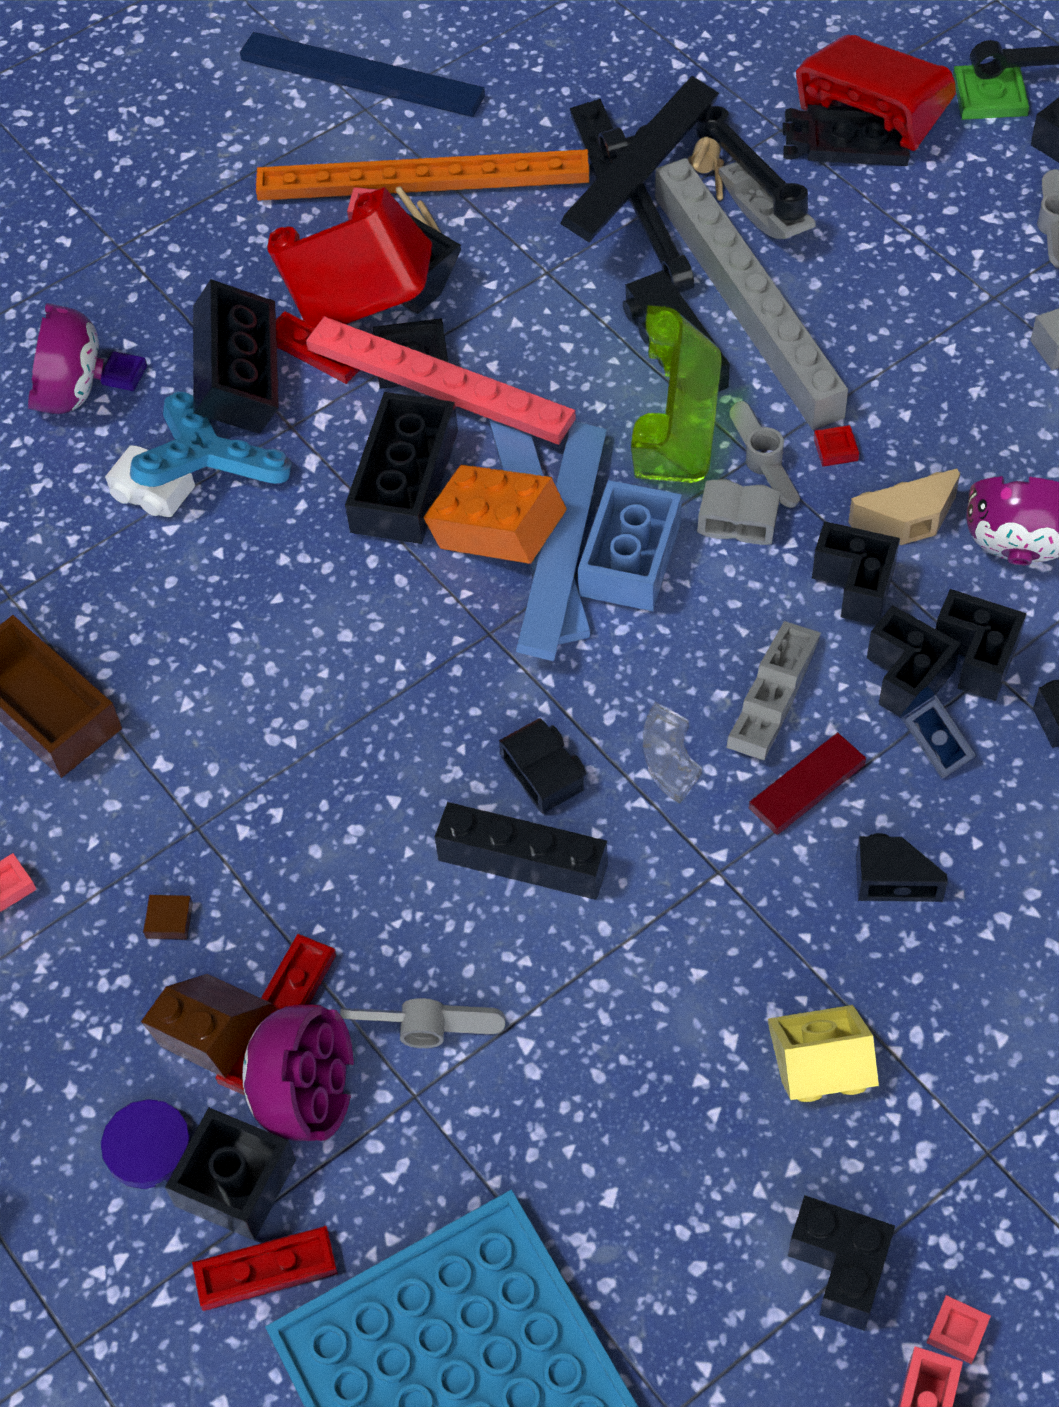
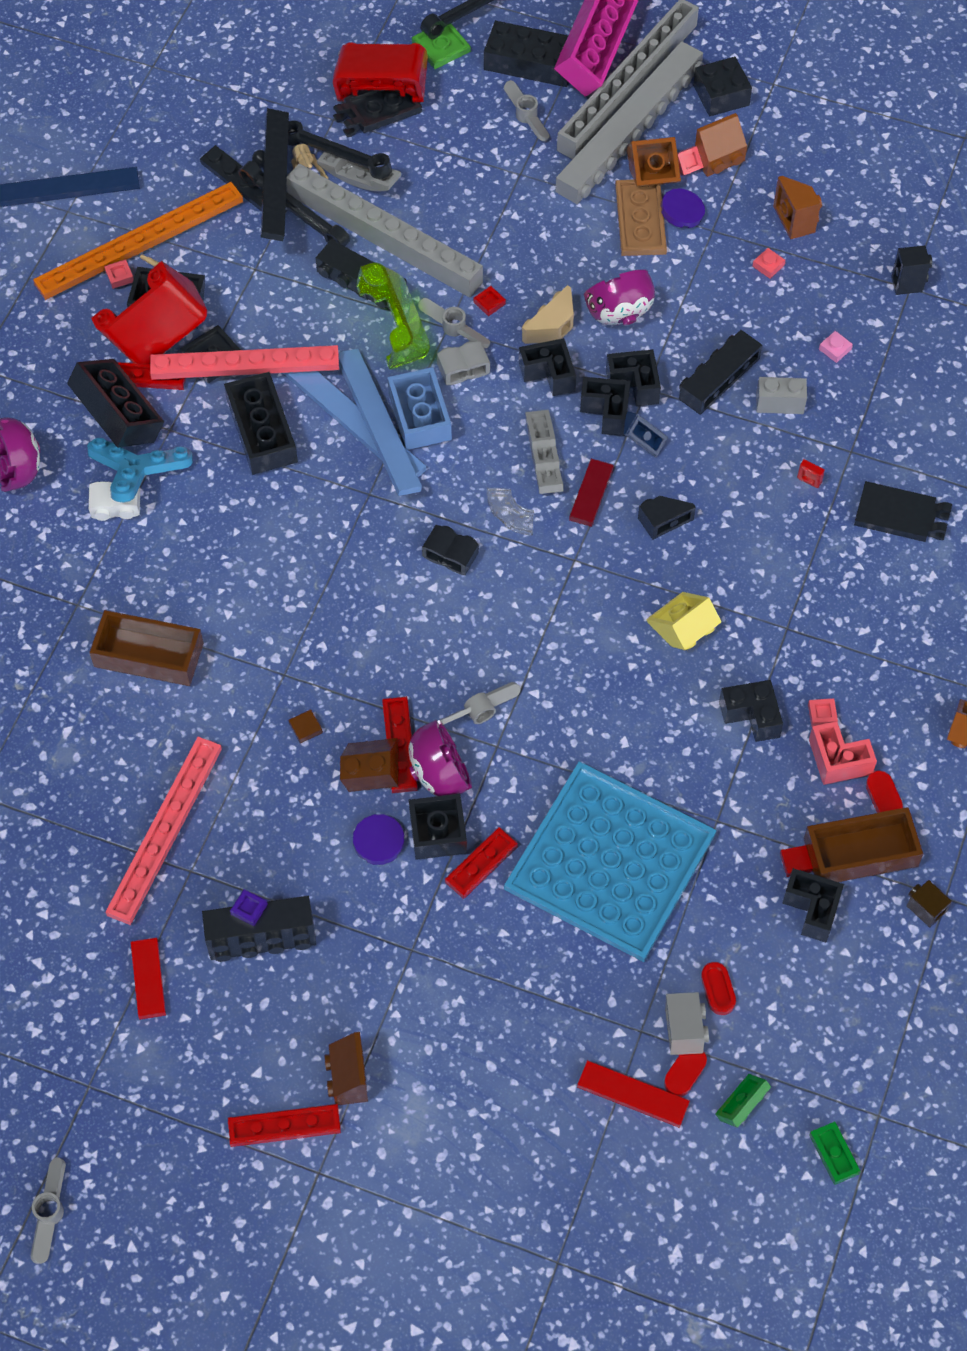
camera: 35 degrees left, 5 degrees up
(123, 371) = (46, 441): dark purple tile -> none
(495, 513) = (334, 425): orange brick -> none
(521, 850) = (471, 598): black brick -> none

